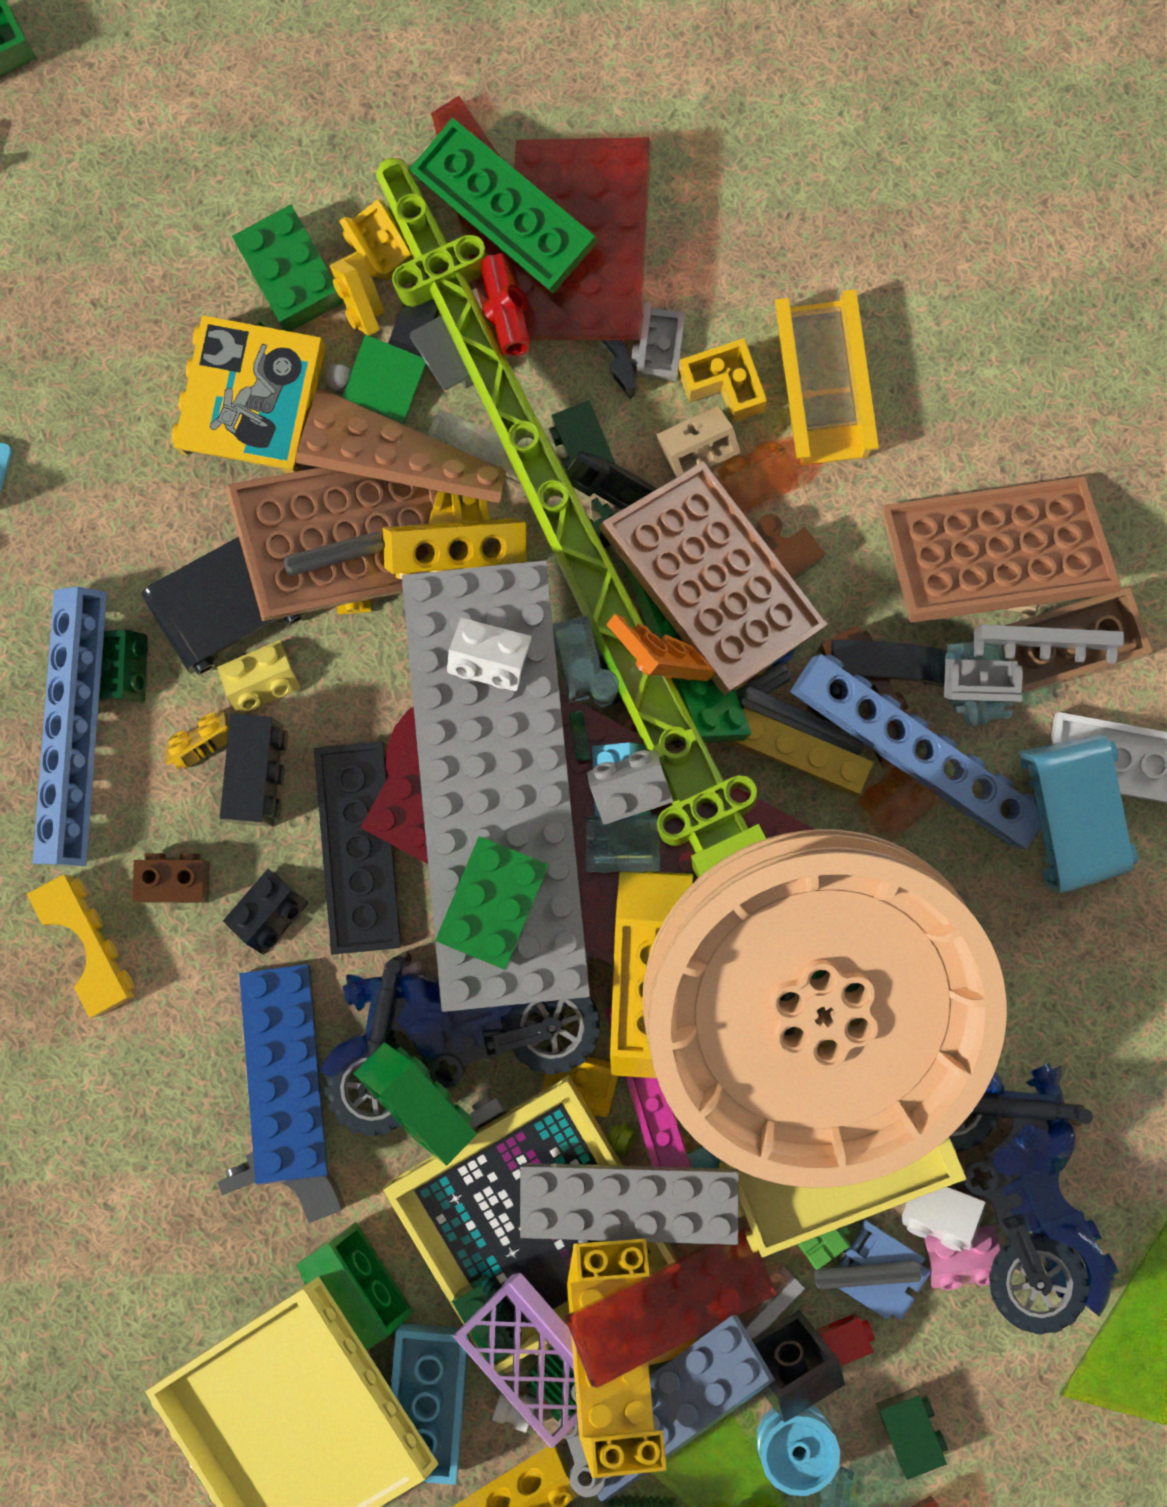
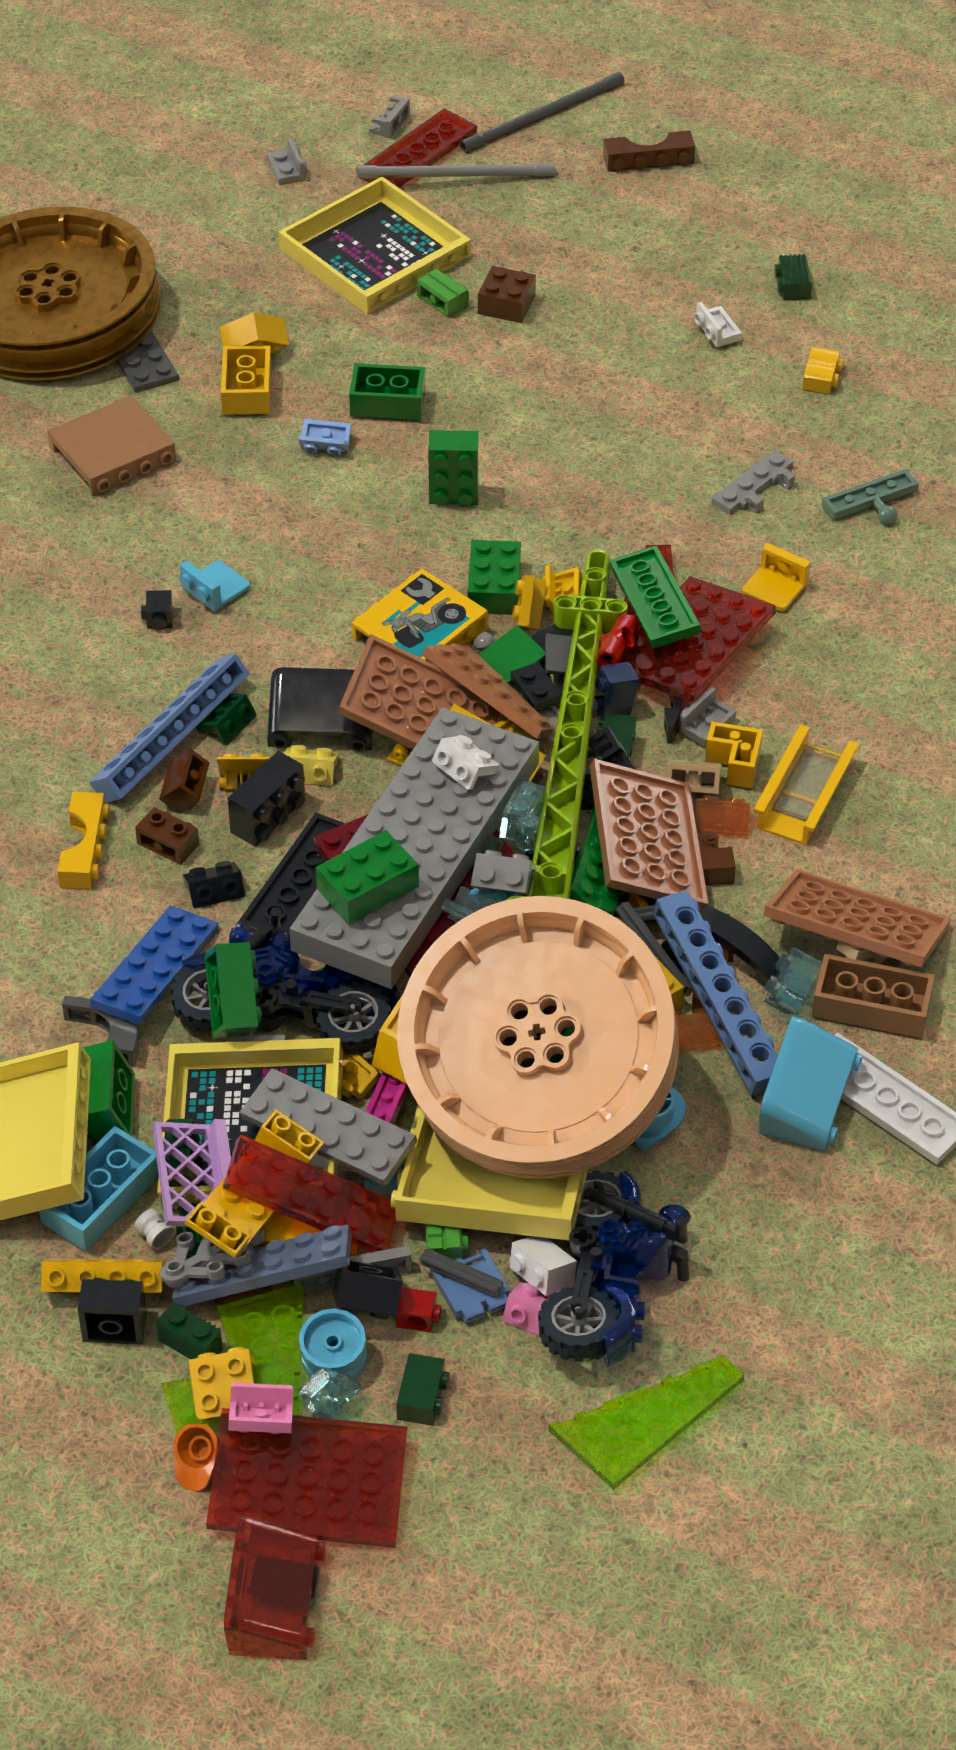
camera: 25 degrees right, 35 degrees down
(139, 795) = (184, 781): none -> reddish brown brick
(140, 135) = (453, 467): none -> green brick
(333, 553) = (405, 702): dark grey axle -> none
(444, 414) = (536, 686): none -> black bracket
(542, 371) = (615, 689): none -> dark blue brick
(611, 78) = (778, 578): none -> yellow bracket
(661, 656) = (579, 830): orange wing -> none
(983, 680) = (789, 971): light grey hinge -> none
(1048, 638) = (852, 967): light grey hinge -> none

